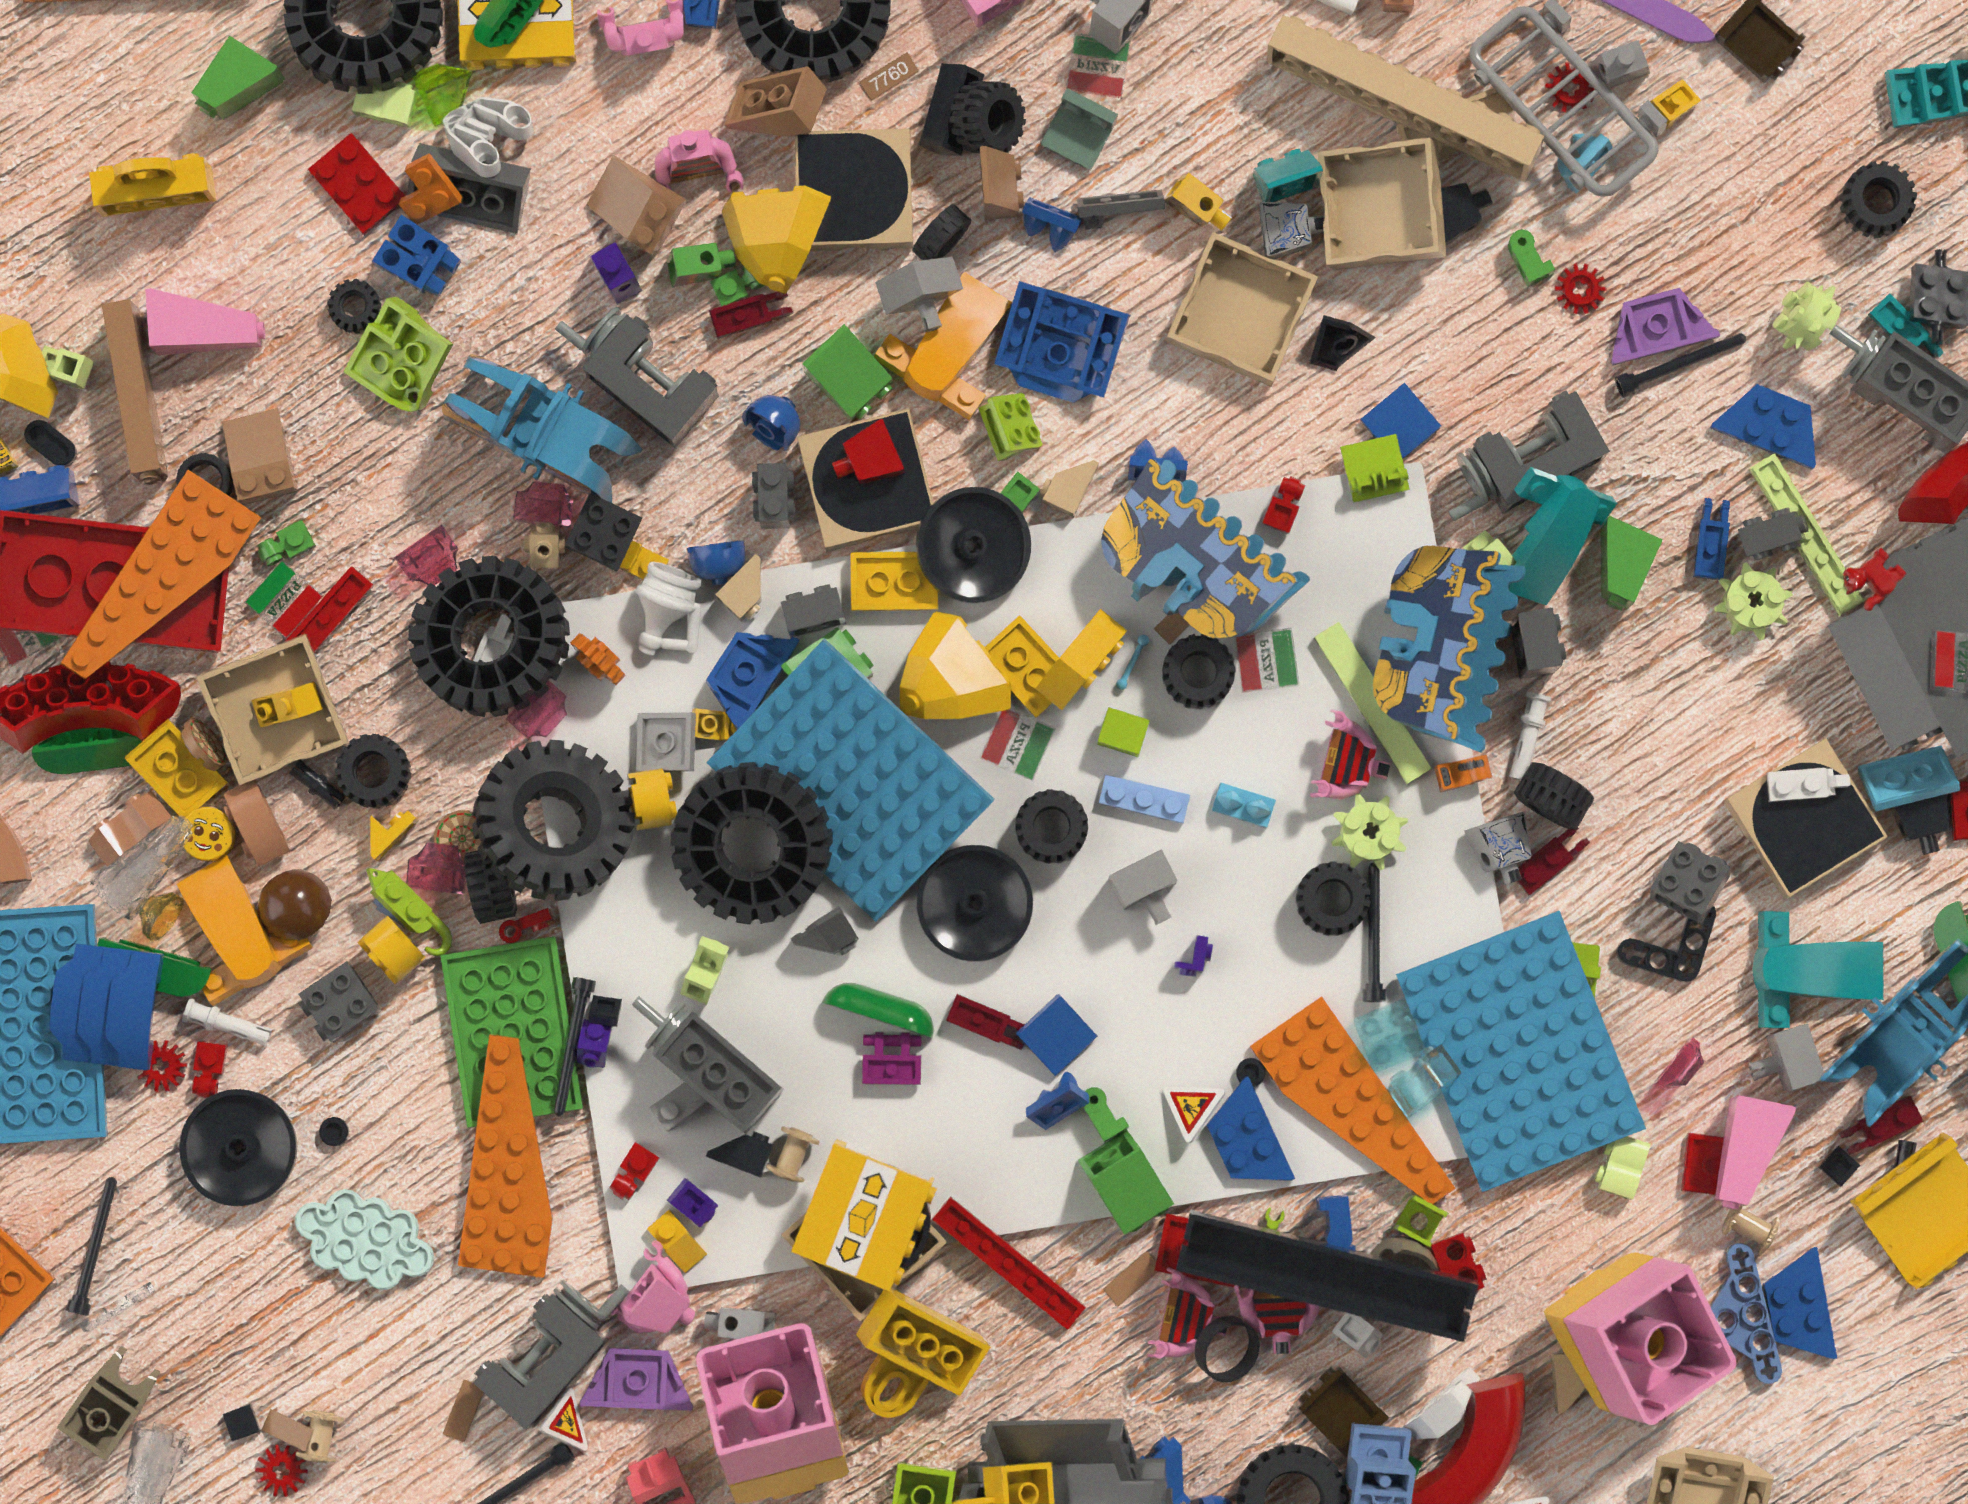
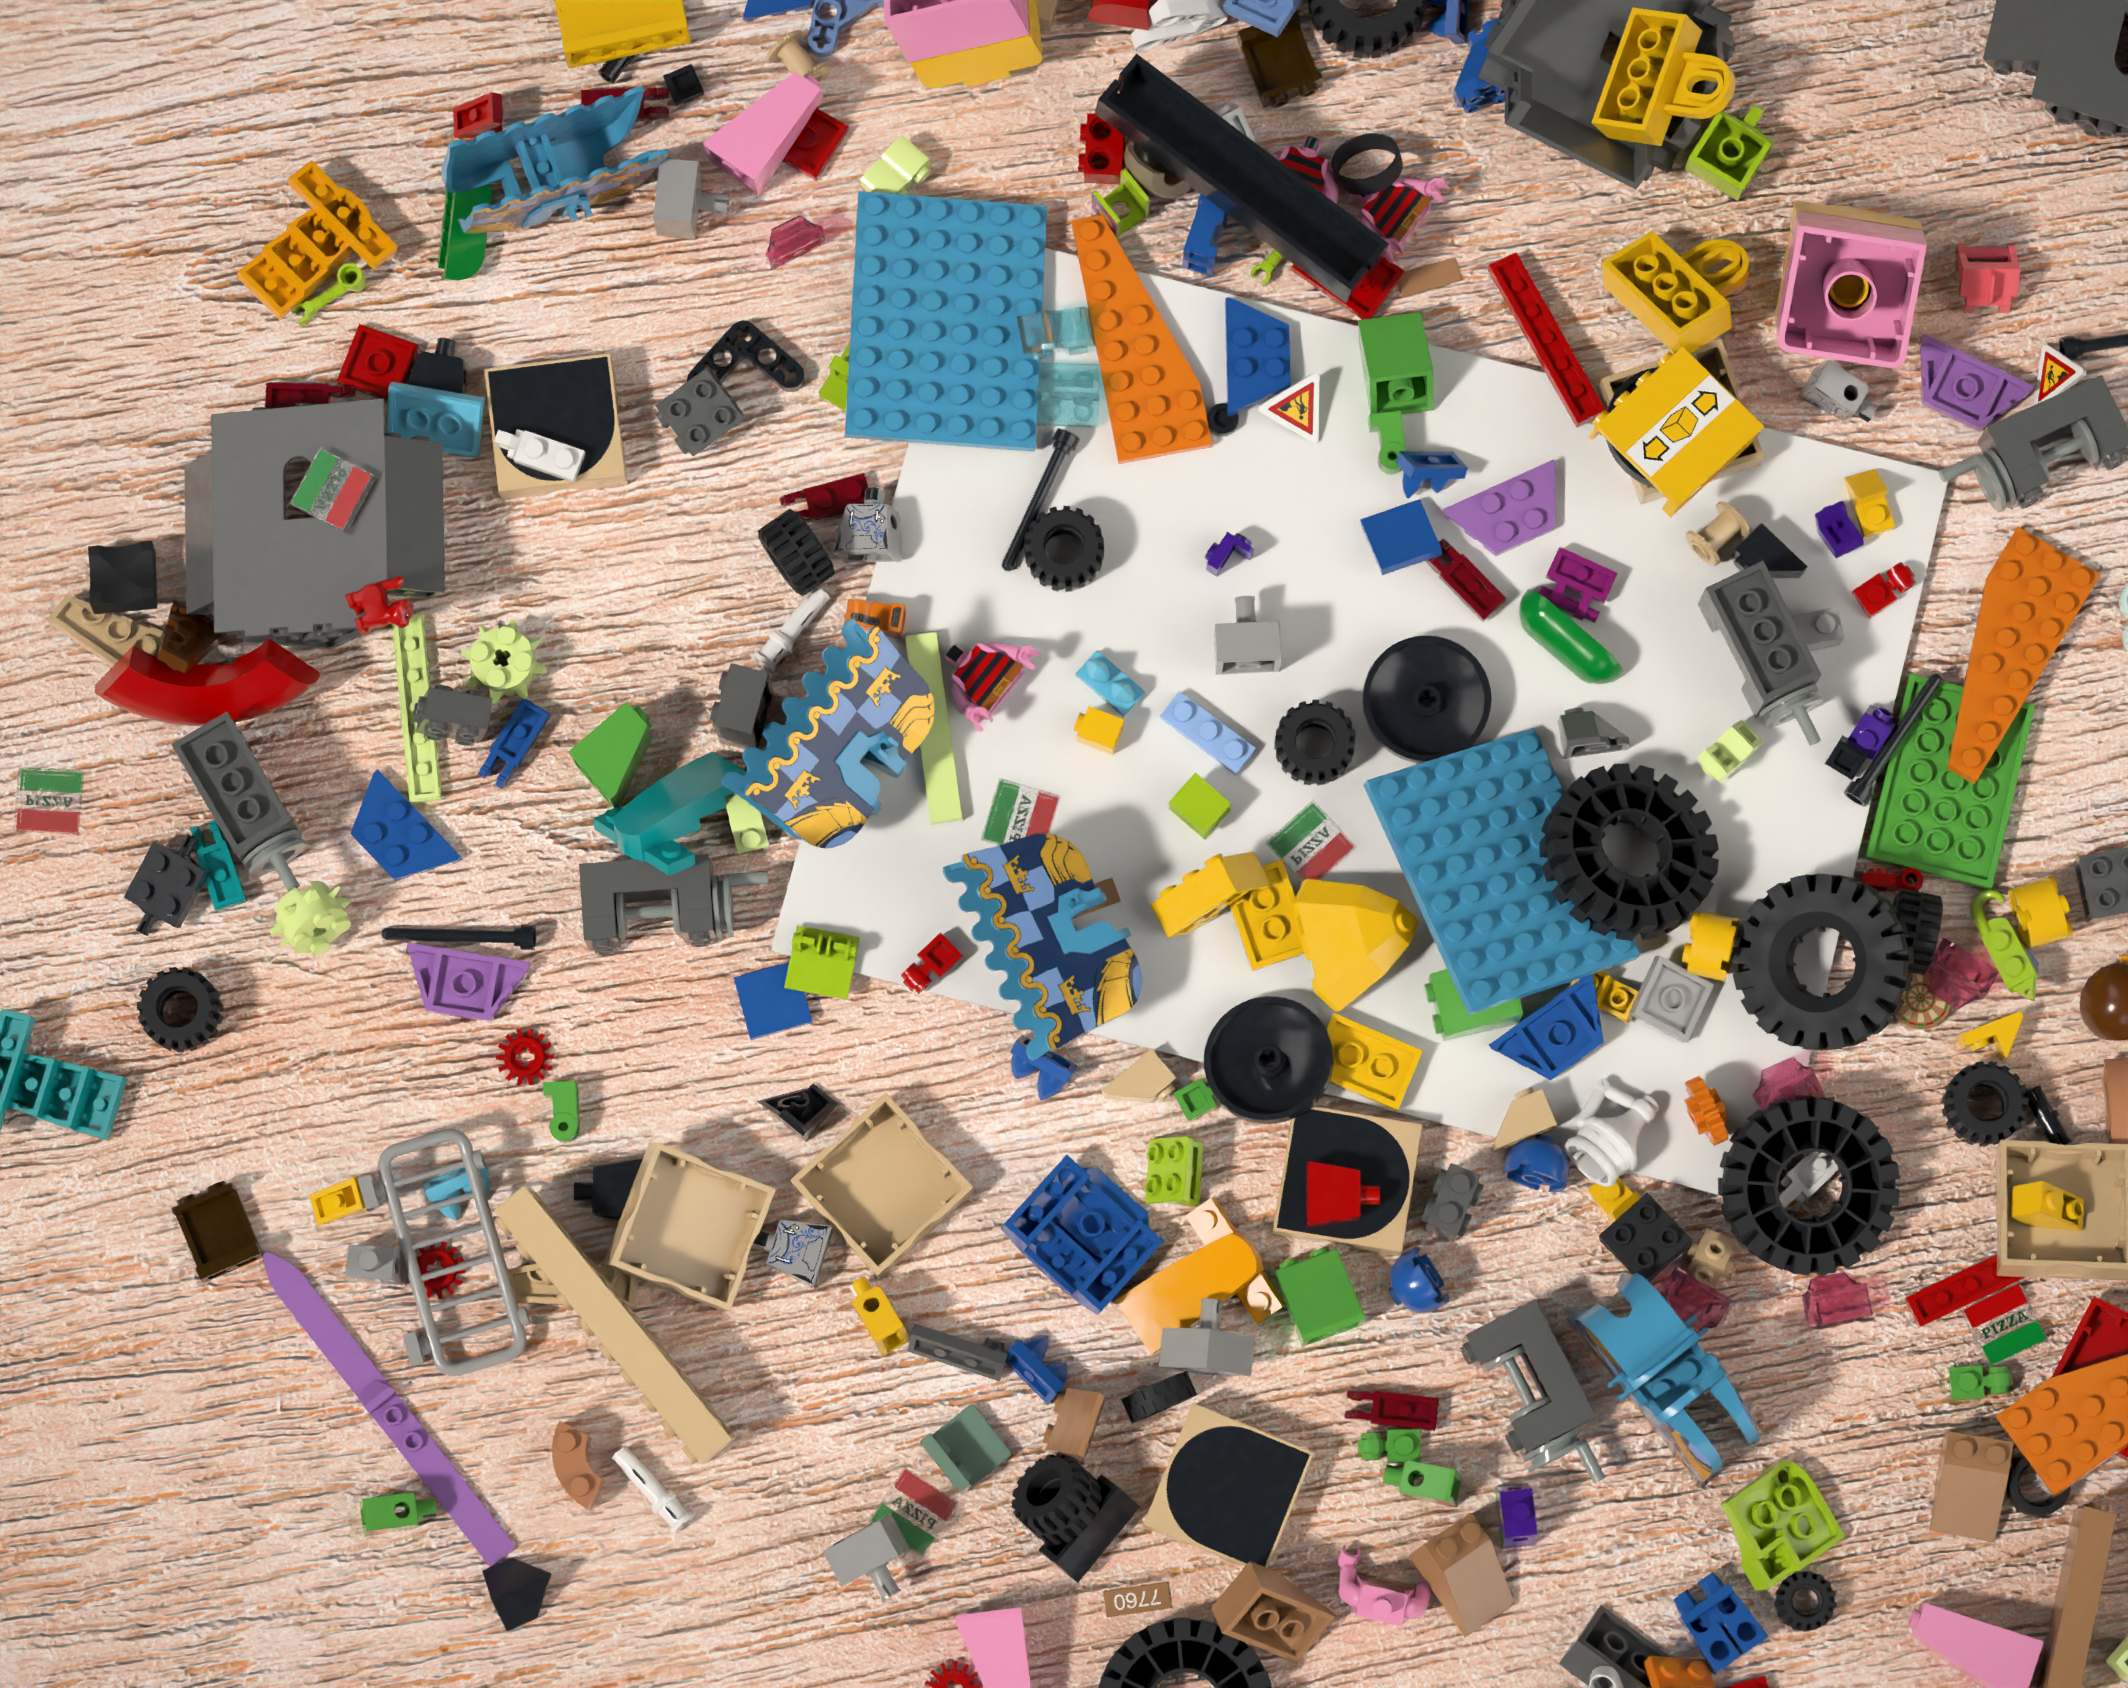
camera: 155 degrees left, 5 degrees down
(657, 1297) = (1913, 453): bright pink torso -> none
(774, 231) = (1332, 1475): yellow brick -> none
(813, 611) = (1463, 1064): dark grey slope -> none
(975, 1099) = (1509, 511): none -> medium lavender wing
(1142, 641) = (1137, 892): medium azure hinge -> none
(1205, 647) = (1106, 806): black tyre -> none
(1235, 759) = (1099, 729): none -> yellow brick
(1287, 176) = (772, 1301): teal slope -> none
(1356, 821) = (999, 617): yellowish green brick -> none
(1810, 970) = (621, 280): teal slope -> none

